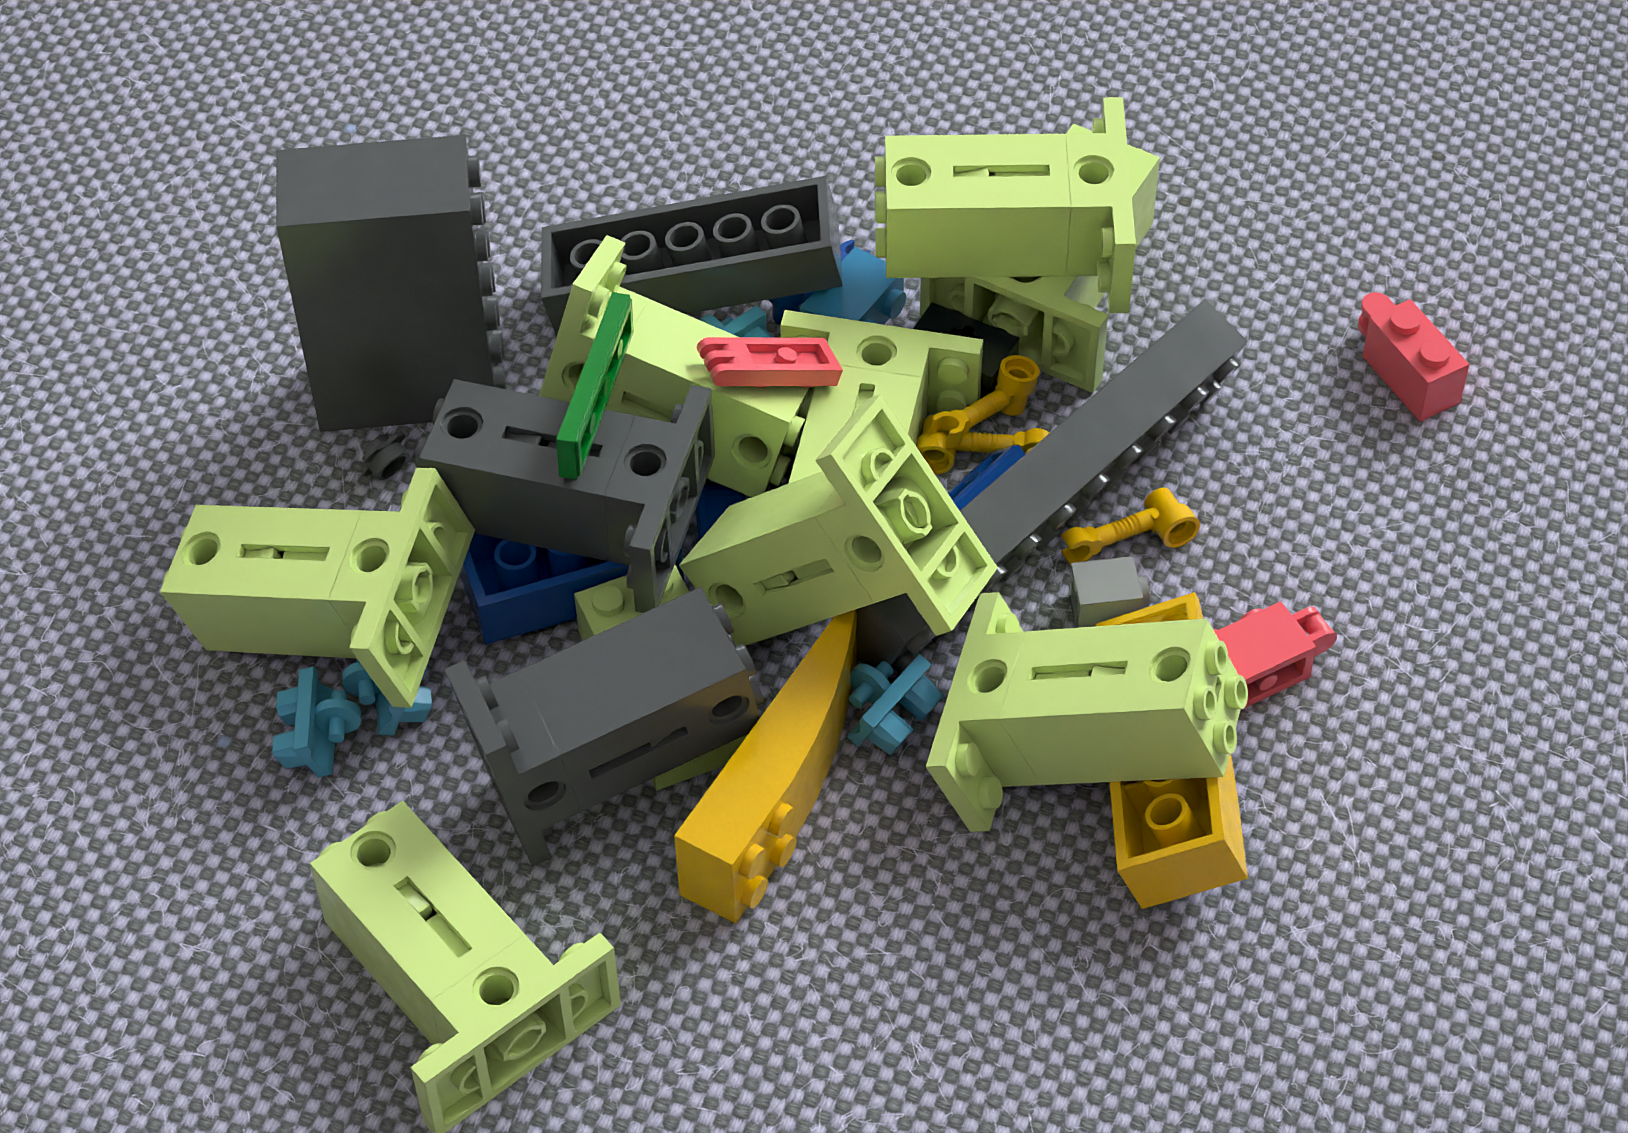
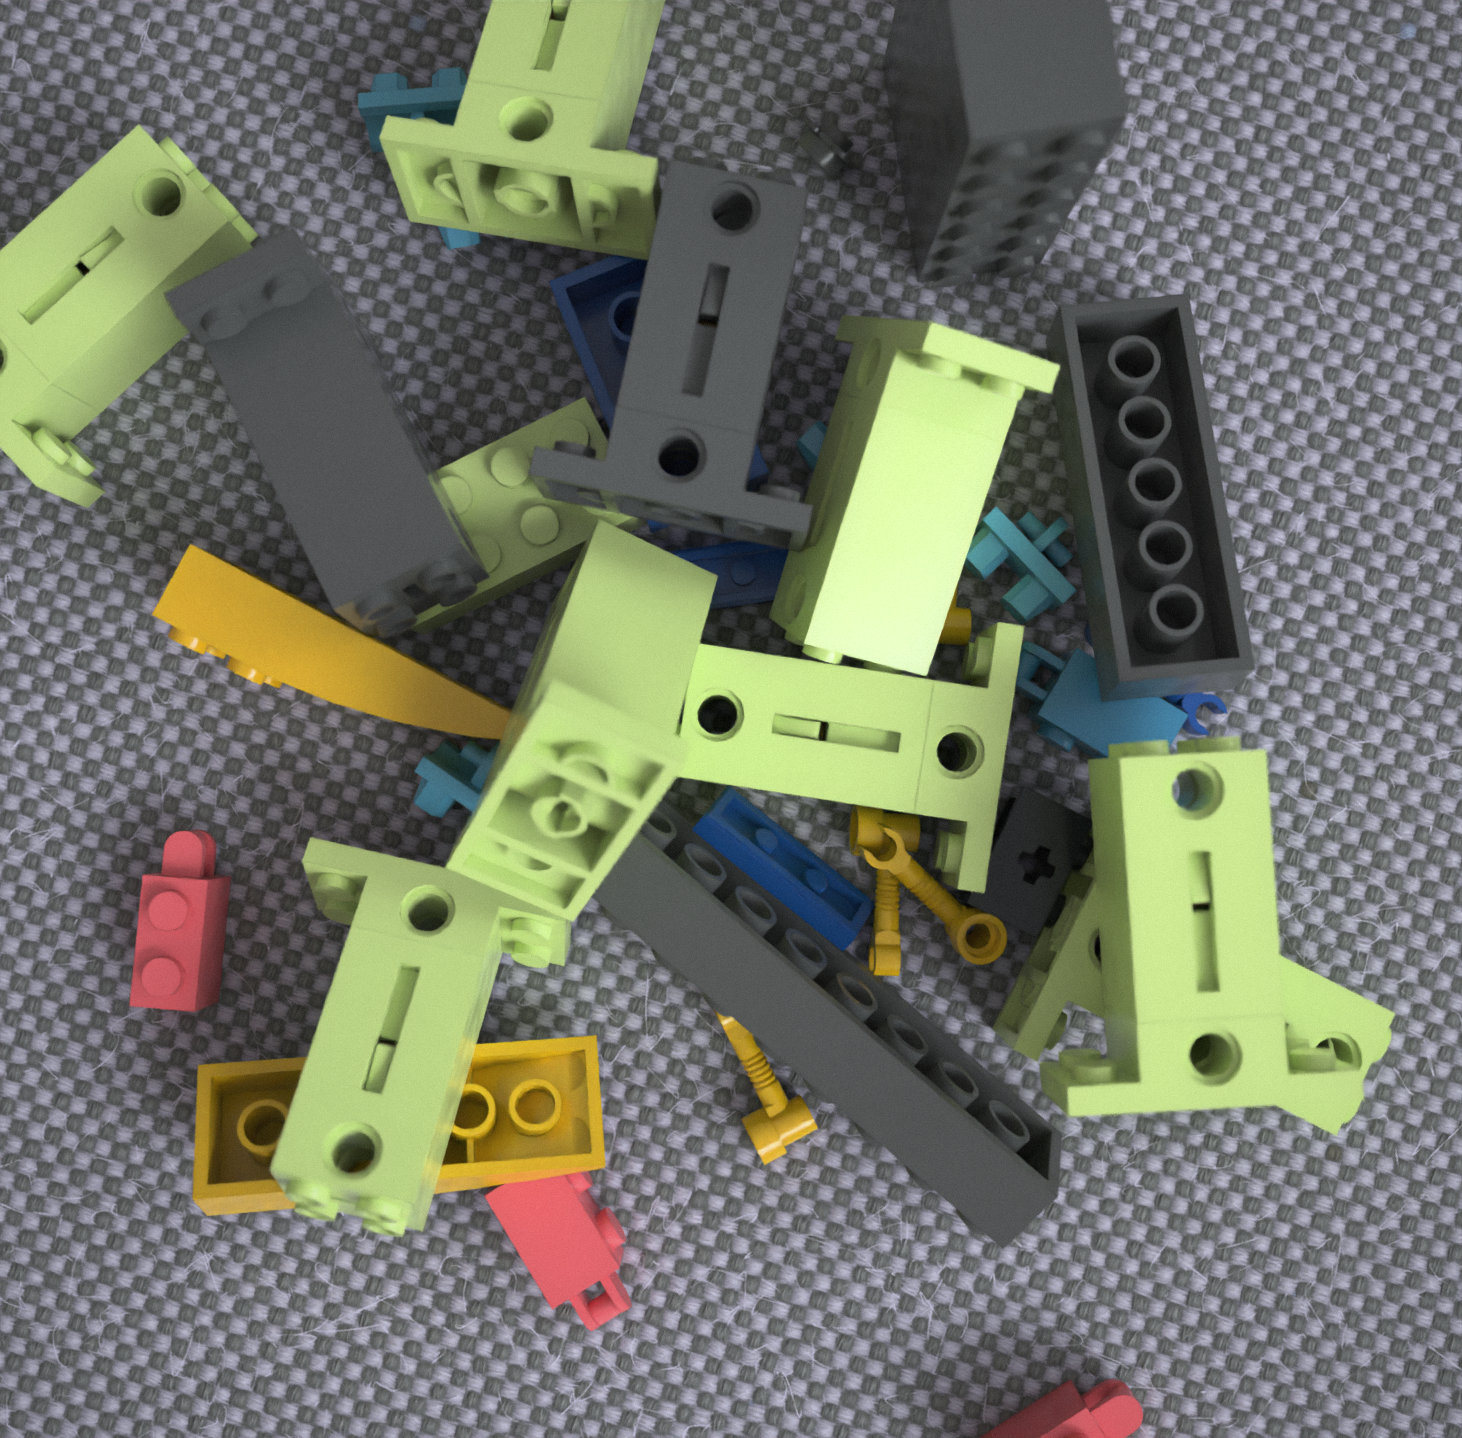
camera: 85 degrees right, 35 degrees up
(595, 386) = (778, 374): green tile -> none
(769, 361) = (896, 611): coral hinge -> none
(1000, 913) = (181, 927): none -> coral brick
(1105, 590) = (644, 1050): light grey brick -> none

